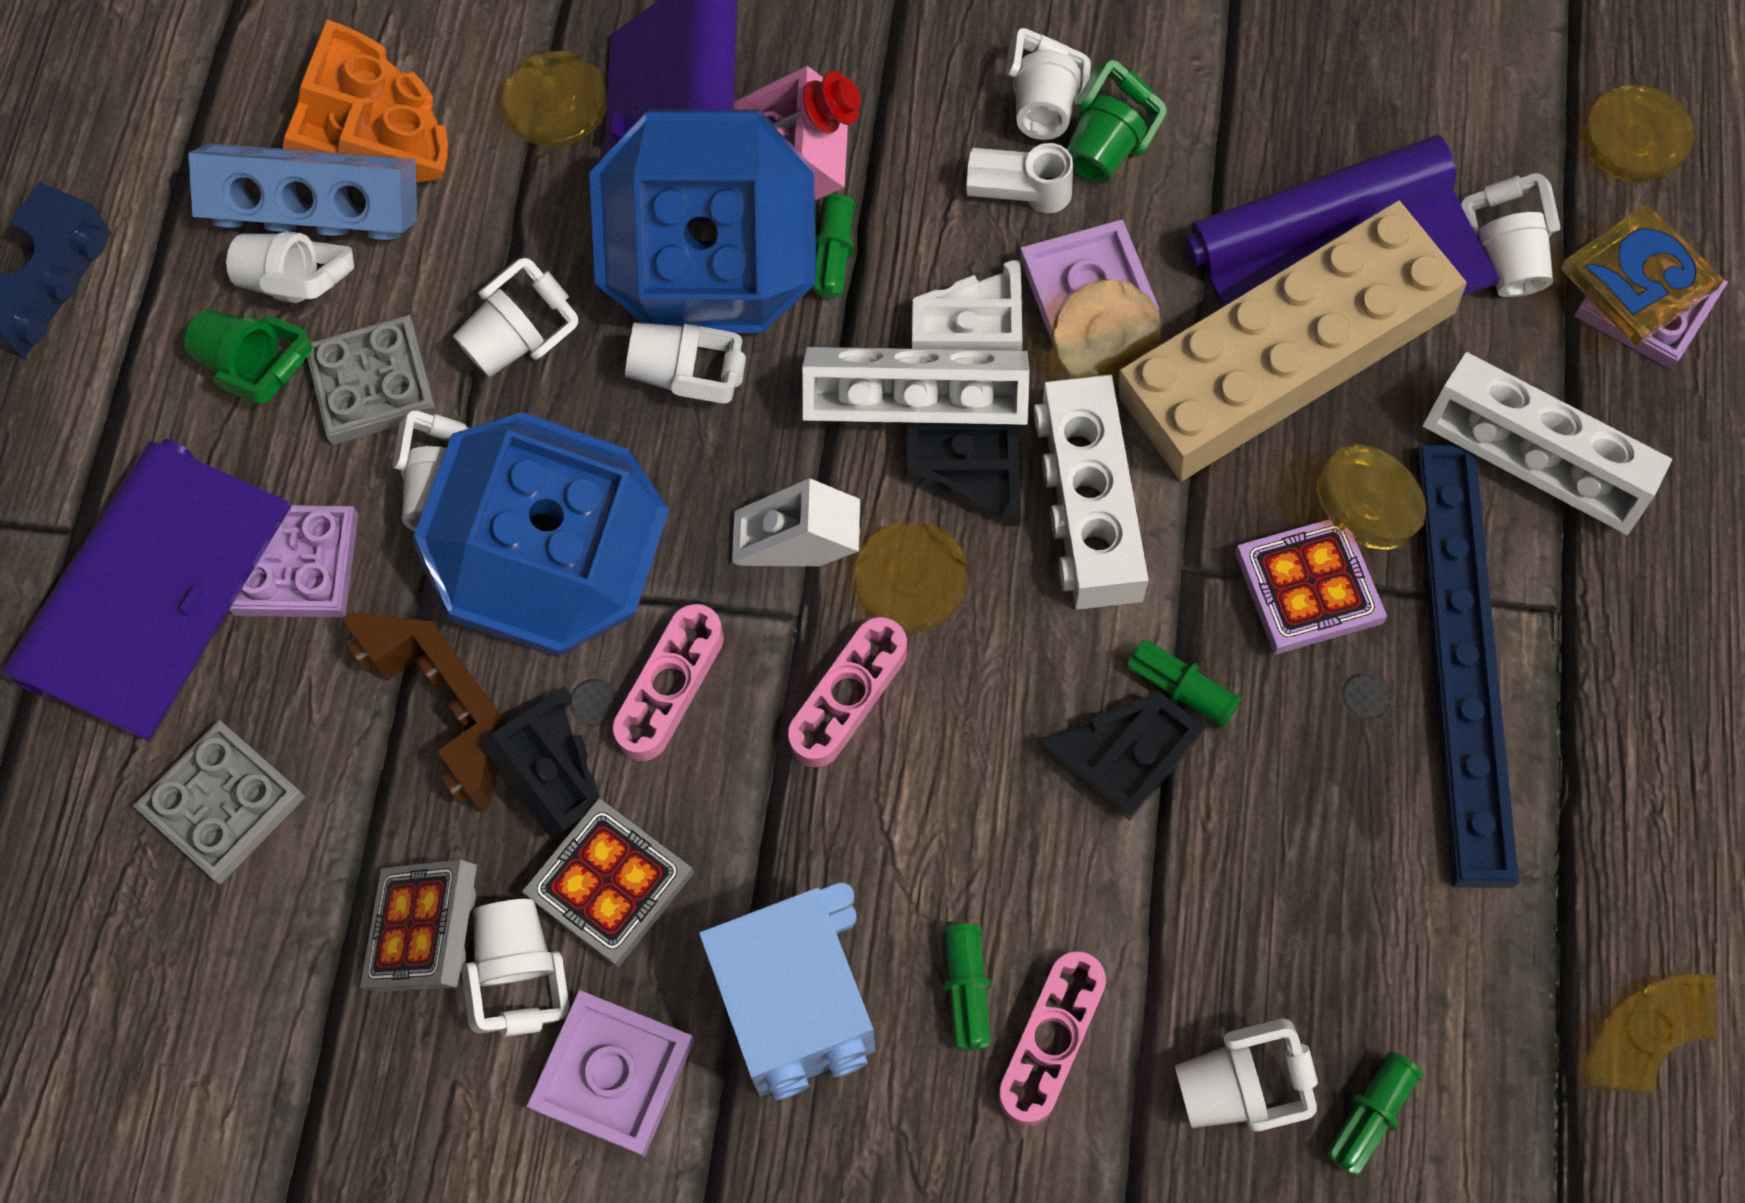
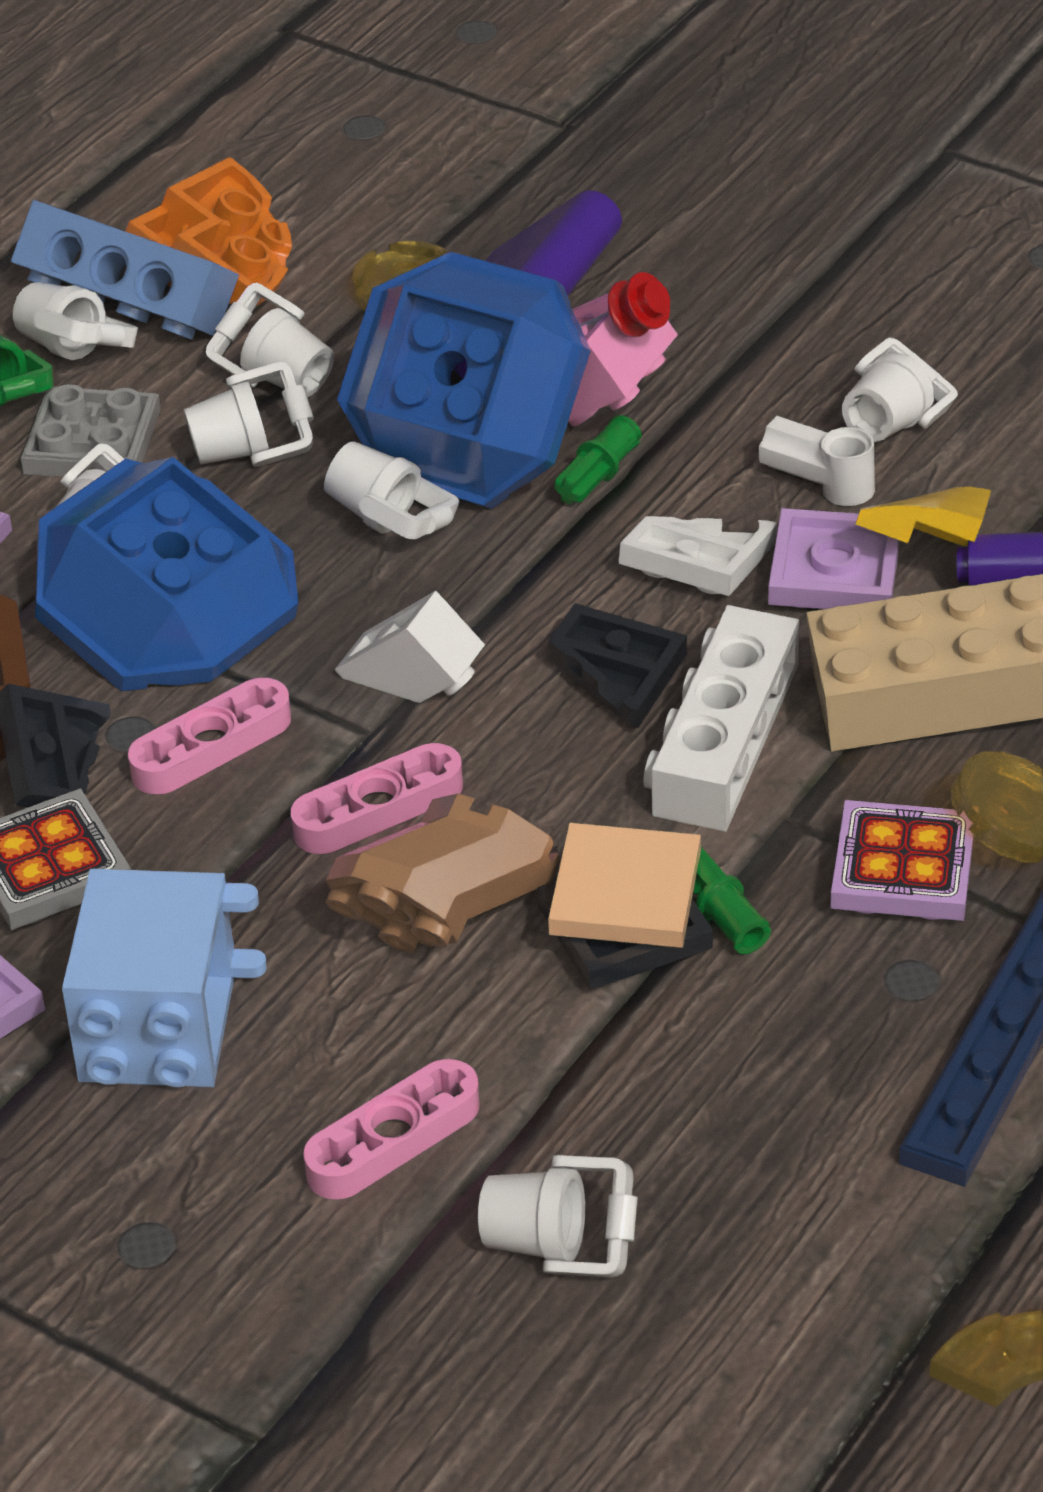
camera: 25 degrees right, 25 degrees down
(498, 229) = (272, 339): none -> white piece
(912, 576) = (504, 733): clear yellow tile -> none
(915, 385) = (599, 574): white brick -> none
(967, 986) = (335, 1055): green axle -> none
(968, 778) = (441, 872): none -> medium nougat brick
(1104, 329) = (818, 576): clear yellow tile -> none
(1109, 127) = (937, 445): green piece -> none
(1119, 717) = (625, 885): none -> light nougat tile
(1160, 208) = (947, 514): none -> yellow slope
(1374, 1113) = (681, 1300): green axle -> none

